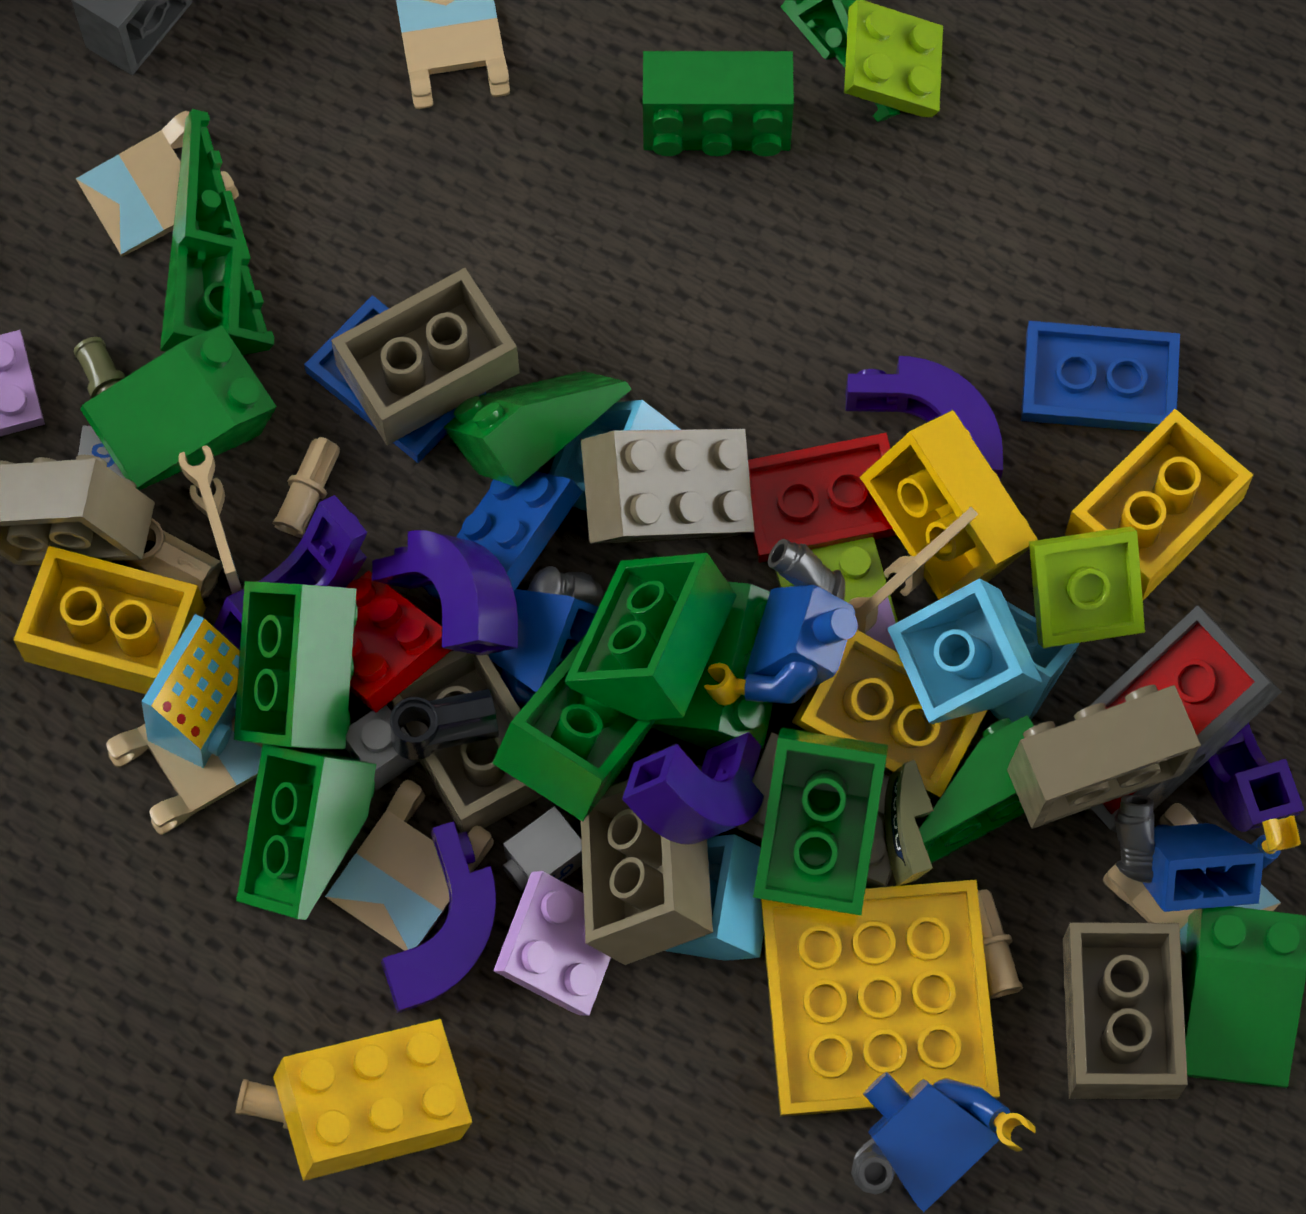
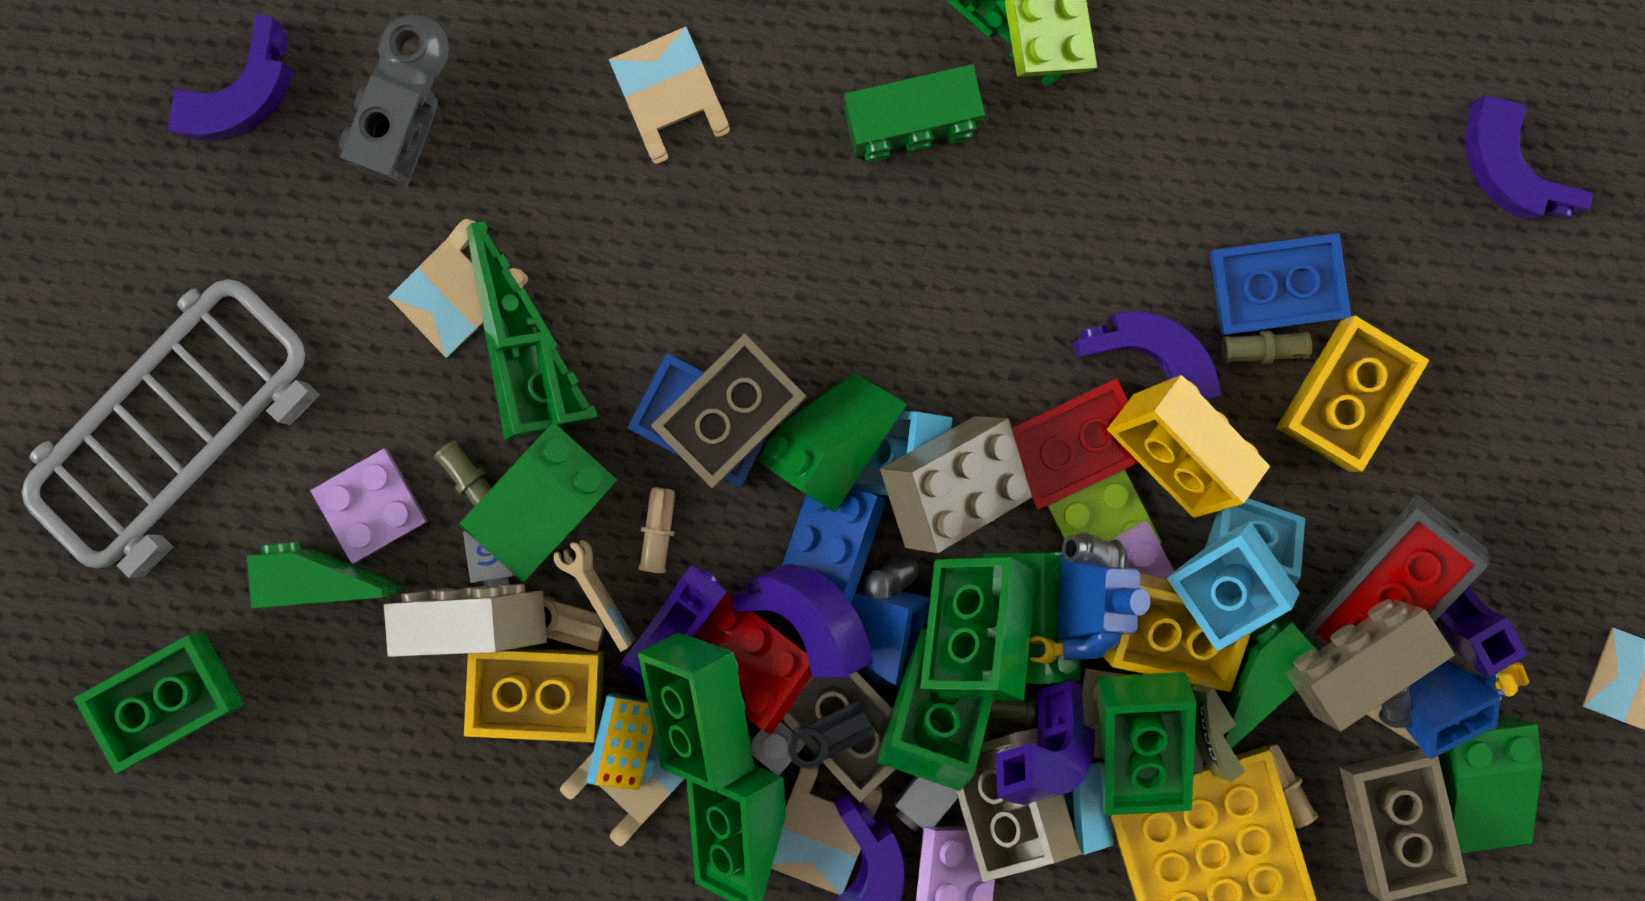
camera: 10 degrees left, 20 degrees up
(909, 570) = (1178, 517): tan flag -> none
(1070, 441) = (1266, 347): none -> olive pin
(1087, 587) = (1314, 491): lime plate -> none

